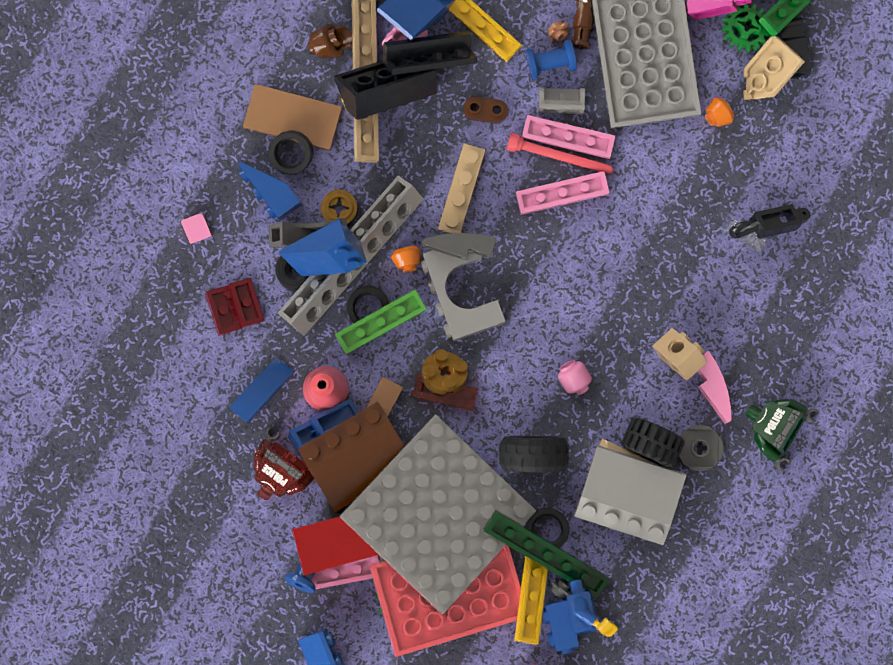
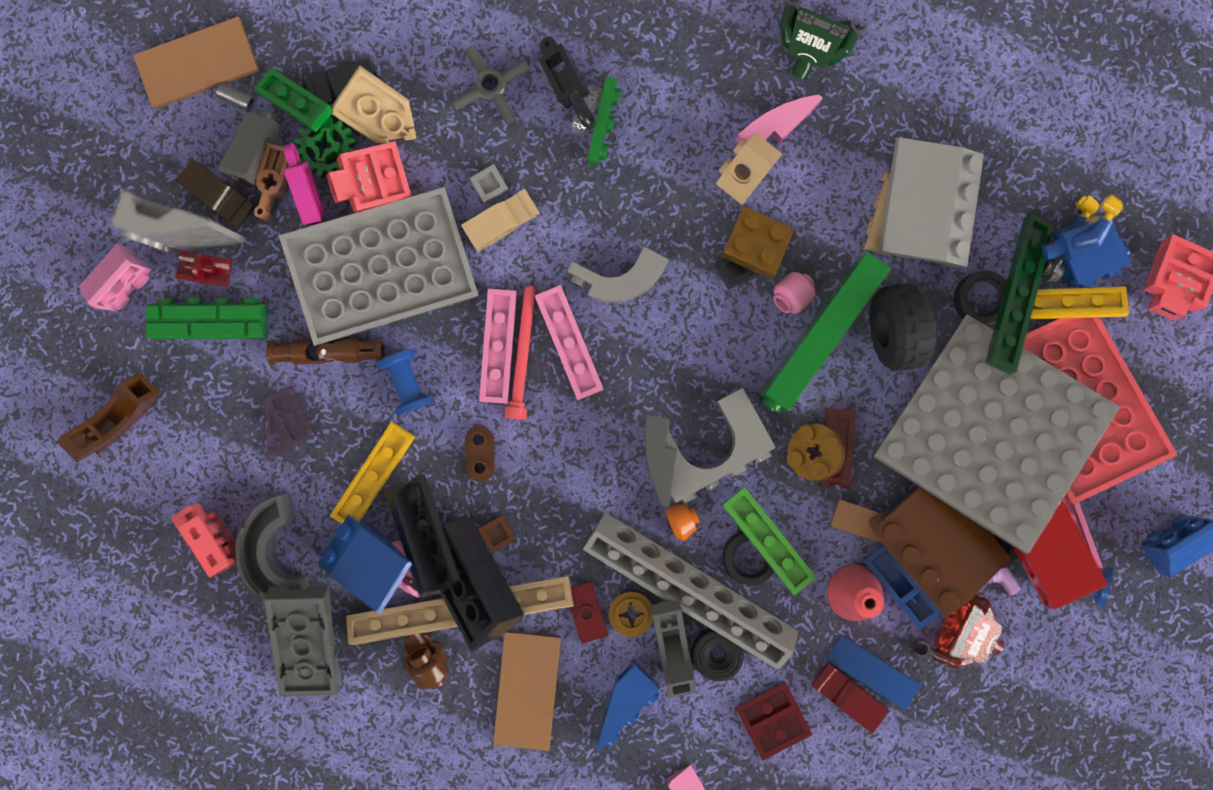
camera: 100 degrees left, 5 degrees up
(244, 368) = (850, 698): none -> dark red piece
(274, 157) = (592, 695): black tyre -> none
(319, 509) = (1007, 580): none -> lavender arm
(326, 251) = (698, 624): blue slope -> none
(345, 173) = (587, 613): none -> dark red plate
(420, 112) = (496, 534): none -> reddish brown plate
(461, 189) = (584, 467): tan plate -> none
(538, 391) = (823, 333): none -> green brick
(558, 31) = (367, 379): nougat plate -> none
(561, 101) = (453, 361): light grey hinge -> none
(600, 248) = (625, 287): none -> light grey arch
(600, 333) = (732, 273): none -> black plate
(619, 355) = (758, 242): none -> pearl gold plate
(653, 442) = (864, 184): black tyre -> none
(668, 153) = (500, 220): none -> tan piece
(698, 150) = (489, 184): none -> light grey plate
(708, 458) = (864, 117): dark grey plate -> none
(716, 57) = (369, 177): none -> coral piece
(719, 112) = (438, 165): orange cone -> none
(734, 247) = (604, 122): none -> green plate
(783, 157) = (485, 75): none -> dark grey bar

